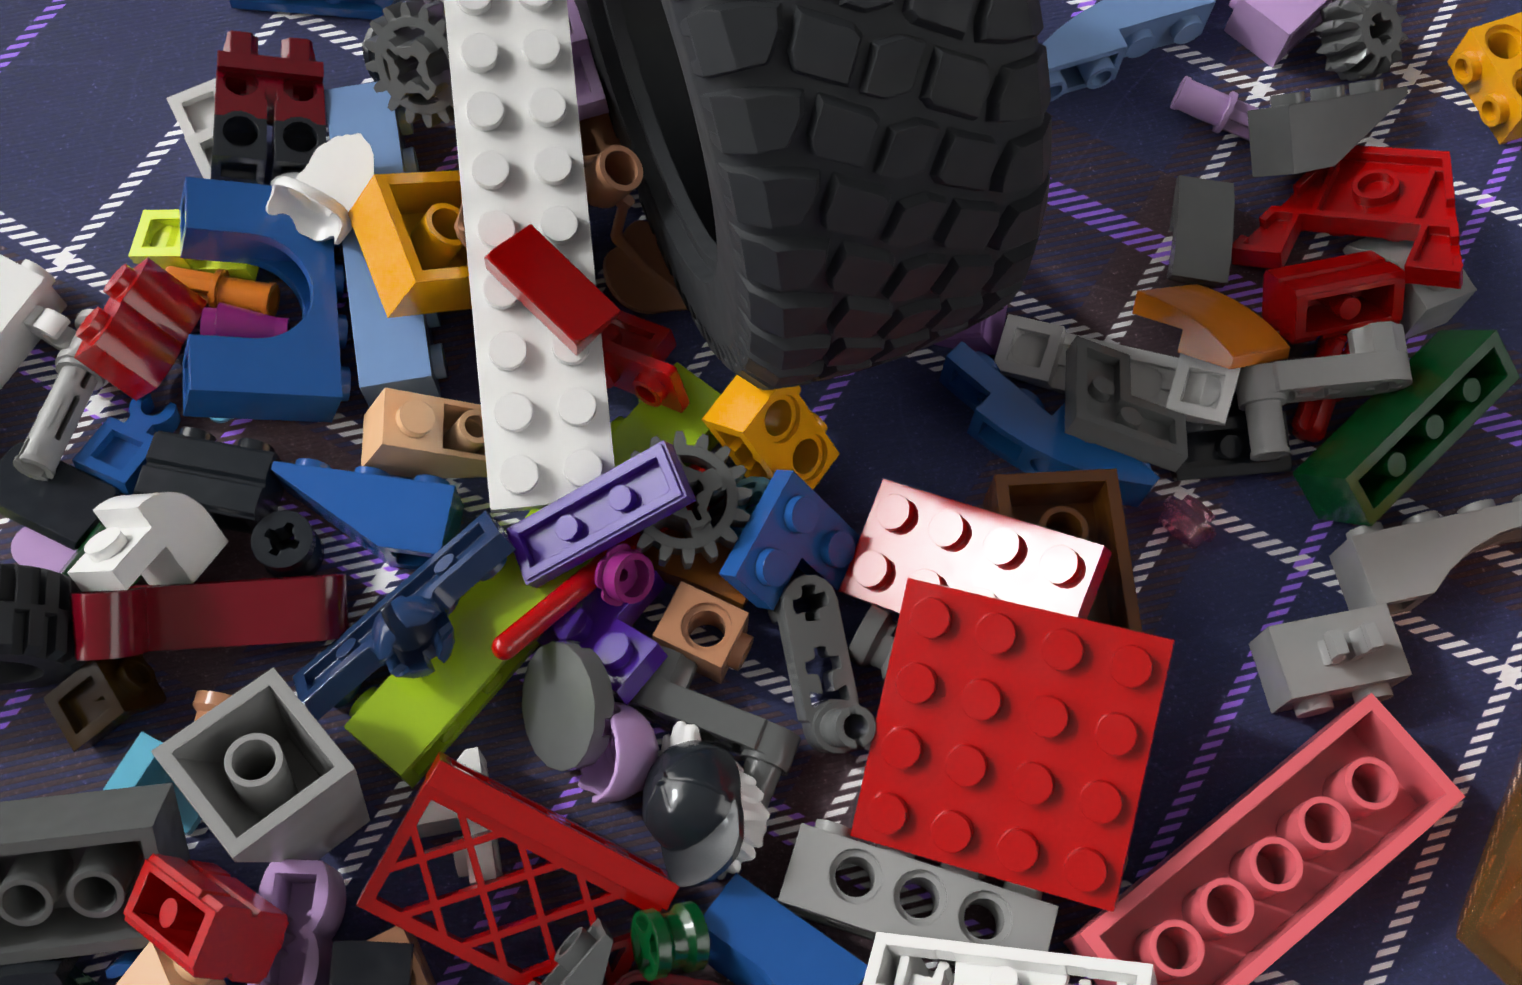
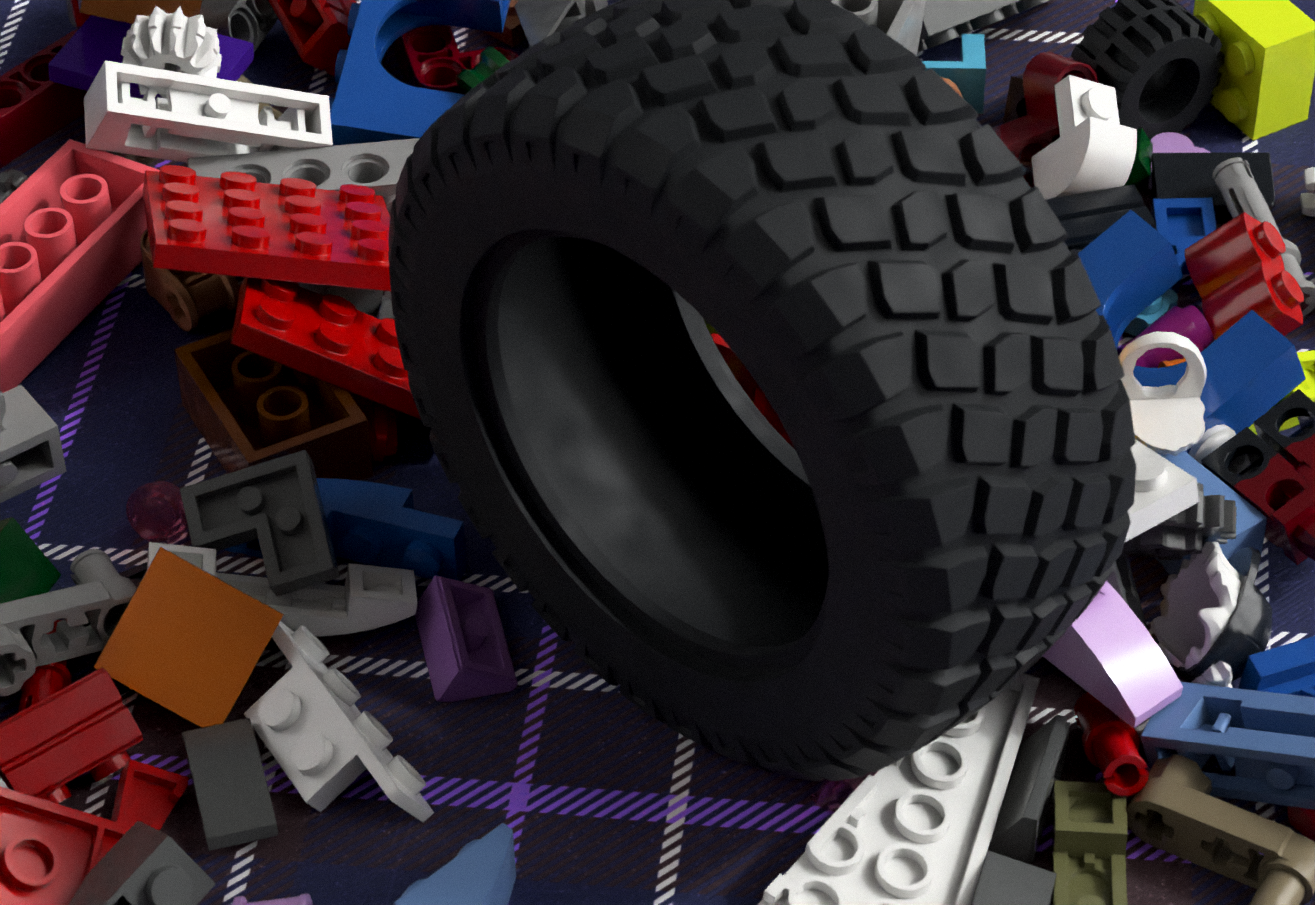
camera: 160 degrees right, 25 degrees down
(1111, 241) = (322, 735): none -> white bracket

